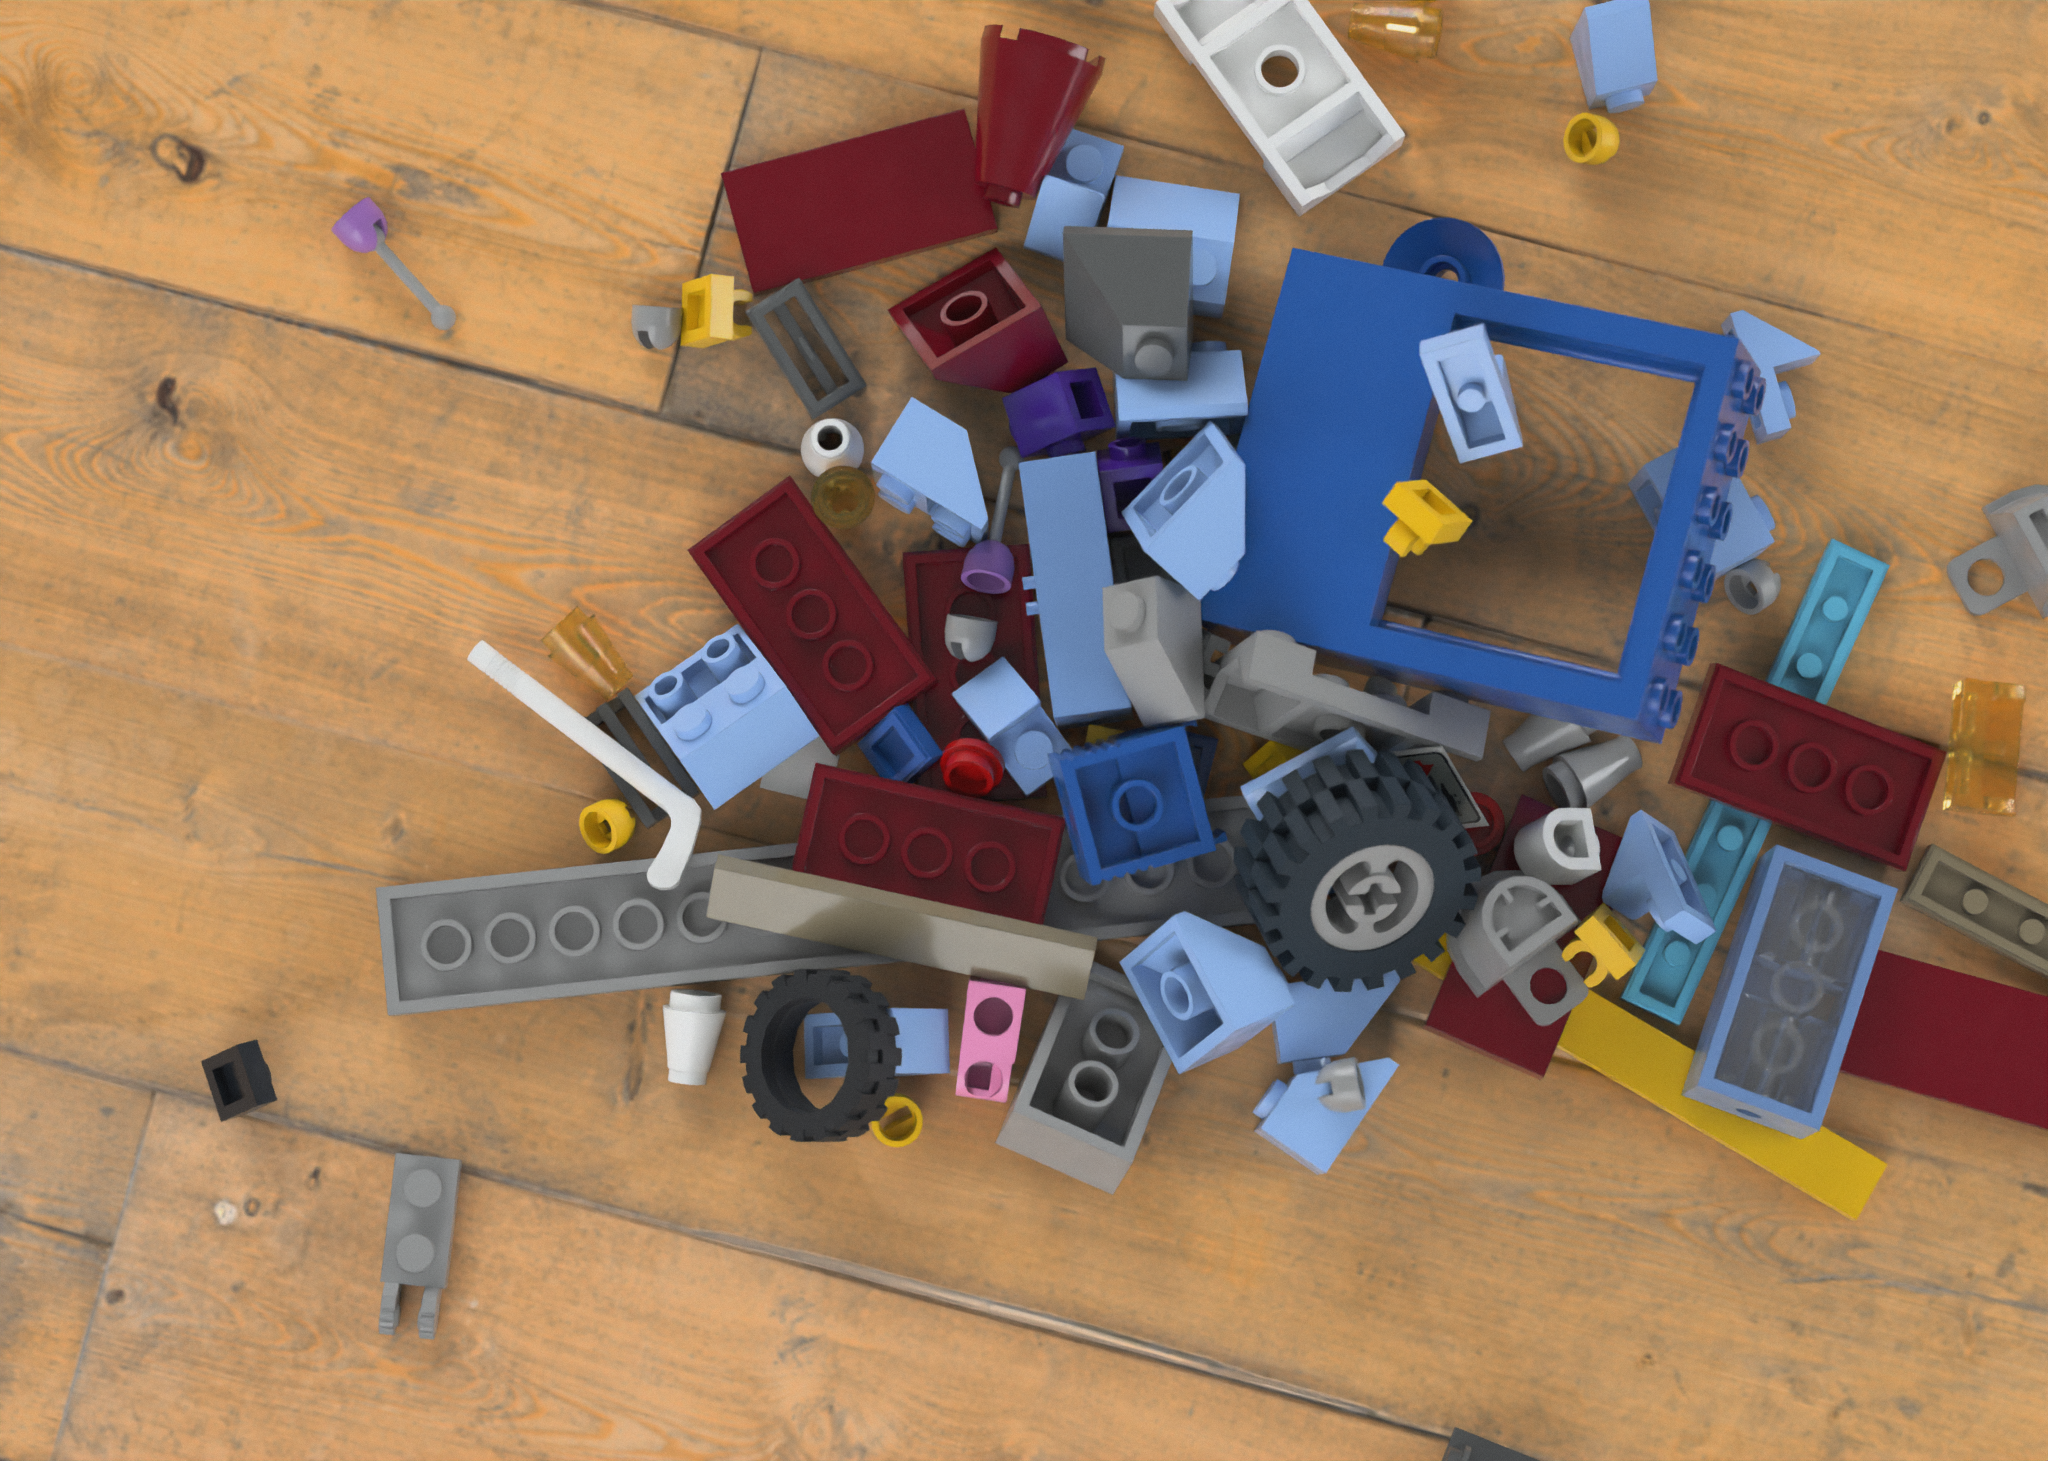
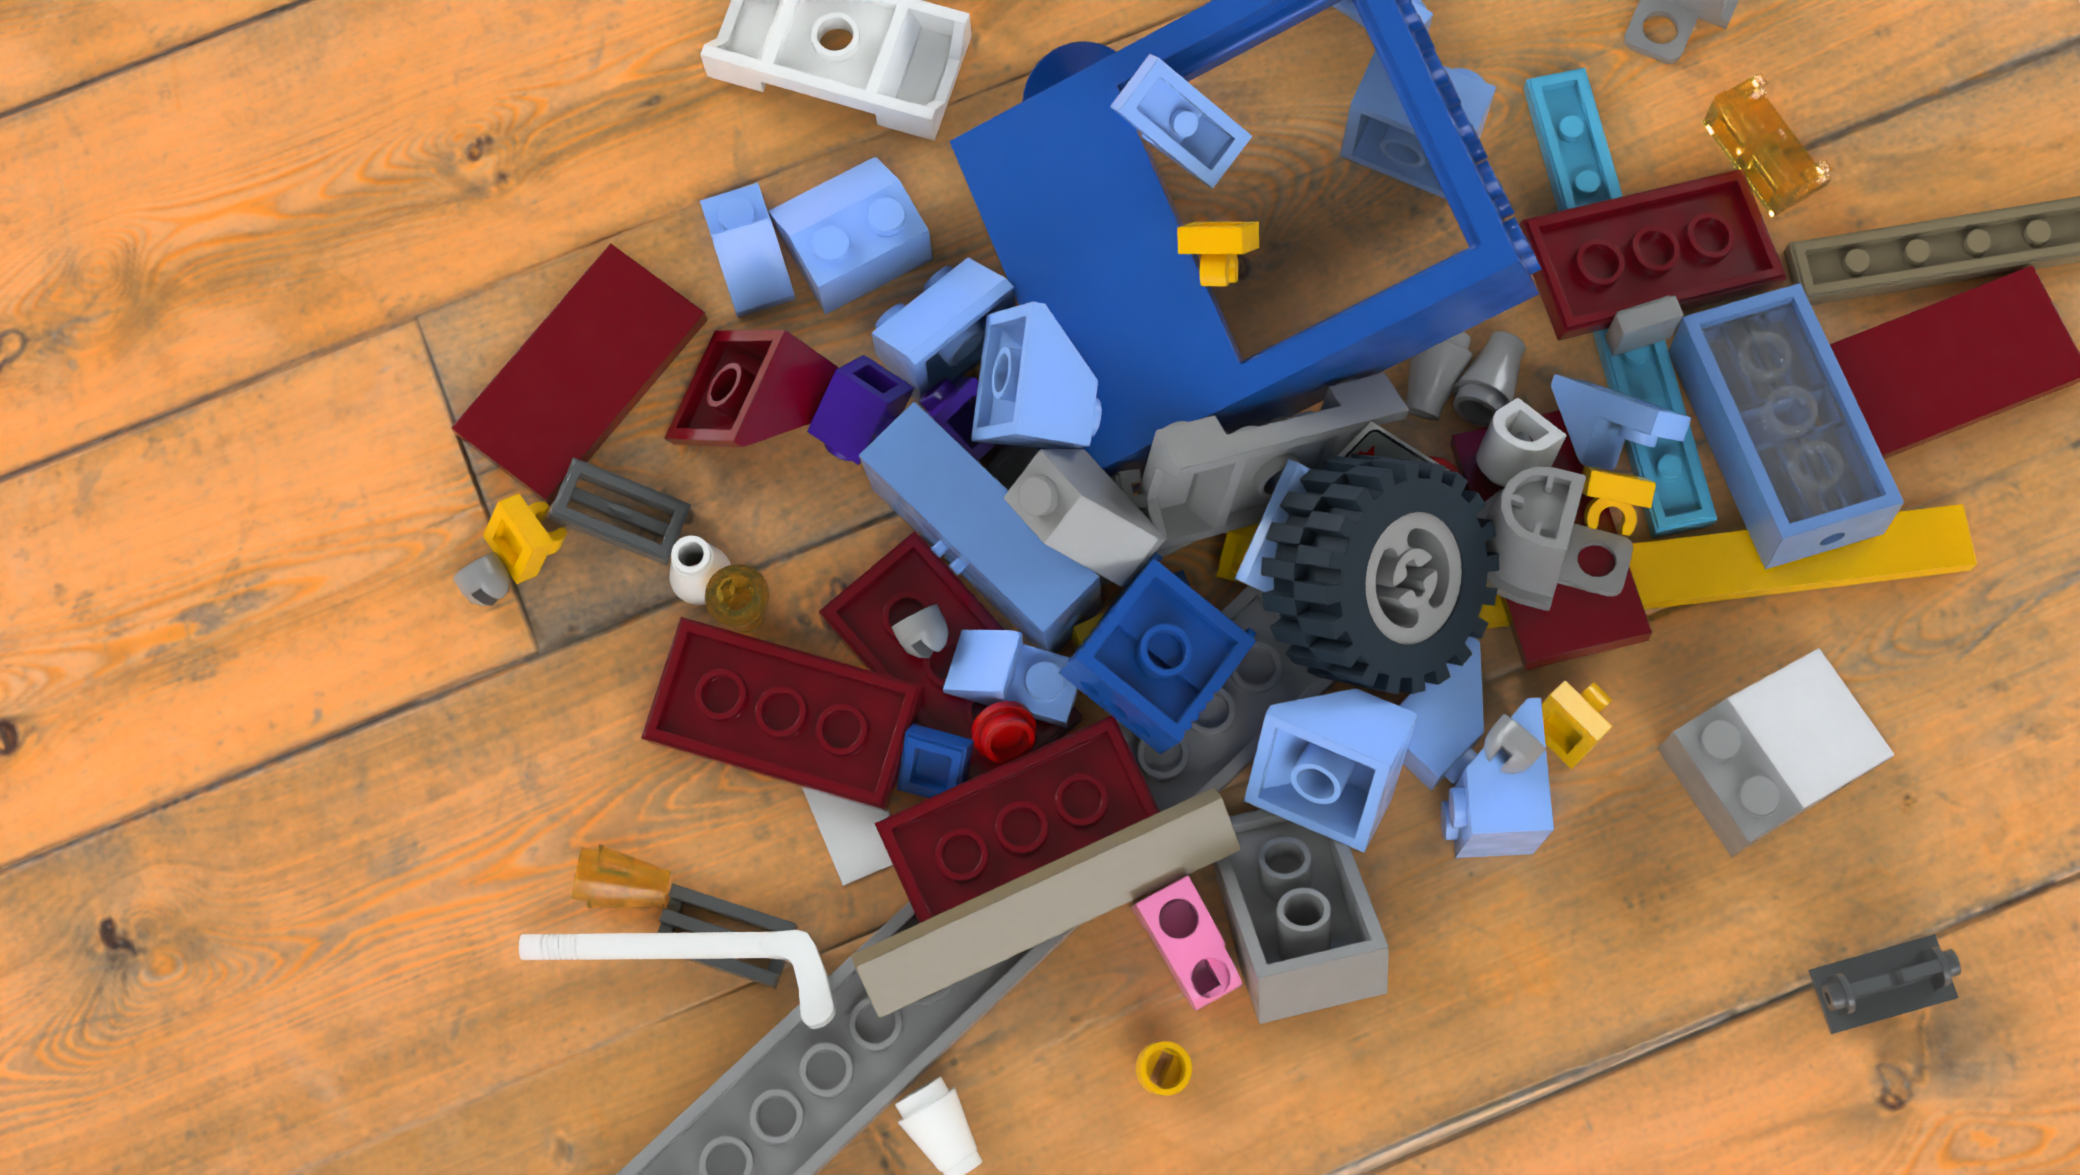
camera: 30 degrees left, 10 degrees down
(365, 231) = (186, 679): hinge -> none
(596, 833) = (725, 1003): yellow hinge -> none
(726, 715) = (773, 843): light blue slope -> none
(771, 1059) = (1010, 1081): black tyre -> none
(921, 1037) = (1098, 1017): light blue slope -> none
(932, 467) = (798, 524): light blue slope -> none
(990, 563) = (895, 563): medium lavender hinge -> none
(1027, 109) = (658, 197): dark red cone -> none
(1130, 299) = (850, 273): dark grey slope -> none
(1425, 1096) = (1574, 721): none -> yellow tile
(1573, 1241) = (1774, 750): none -> slope
(1740, 592) = (1512, 153): light grey hinge -> none
(1745, 824) = (1643, 325): none -> light grey tile

